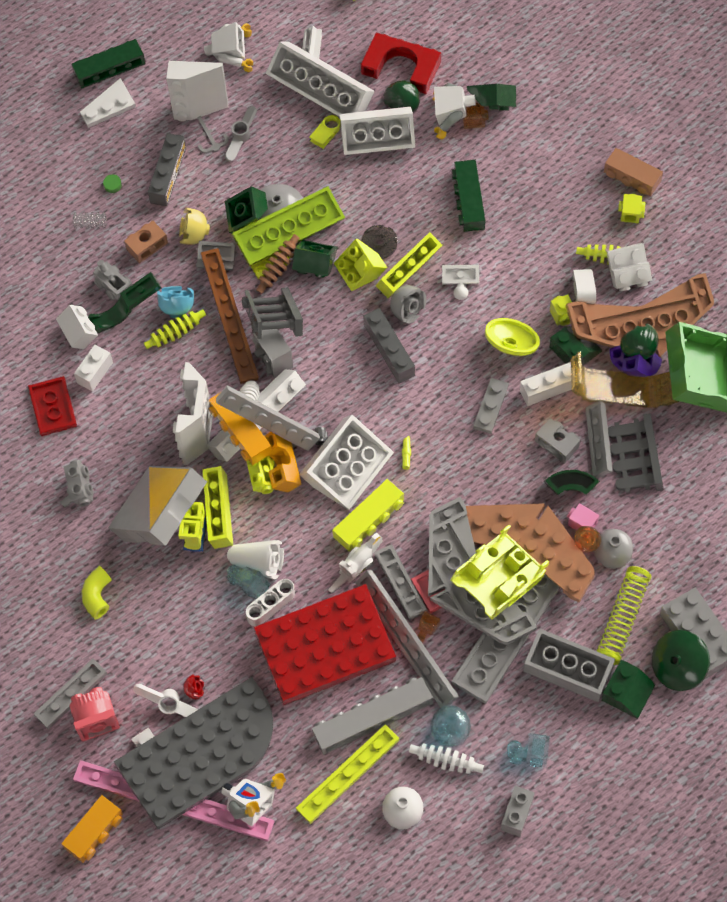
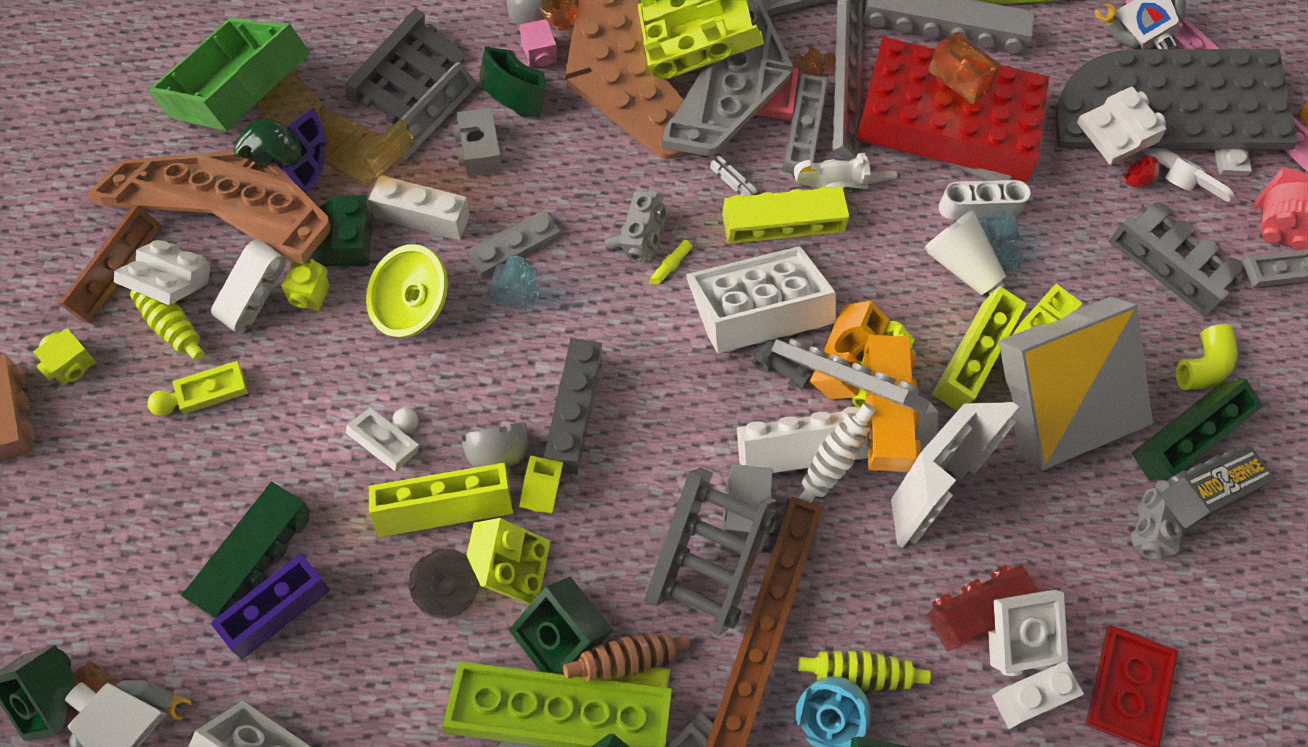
camera: 150 degrees left, 0 degrees up
(60, 508) = (1215, 485): none -> dark grey brick
(84, 541) = (1197, 429): none -> dark green brick
(112, 384) = (1028, 632): none -> white plate
(139, 390) = (972, 612): none -> clear red brick
(154, 649) = (1169, 267): none -> dark grey fence
(221, 697) = (1123, 125): none -> white plate
(329, 640) = (964, 67): none -> clear orange brick
(372, 300) = (540, 484): none -> neon yellow brick
(411, 521) = (733, 176): none -> light grey axle
(433, 452) = (642, 227): none -> light grey brick
(437, 182) = (270, 606): none -> dark purple brick
(467, 378) = (514, 284): none -> clear light blue brick
(559, 239) = (200, 390): none -> neon yellow plate
(660, 257) = (97, 279): none -> dark orange plate

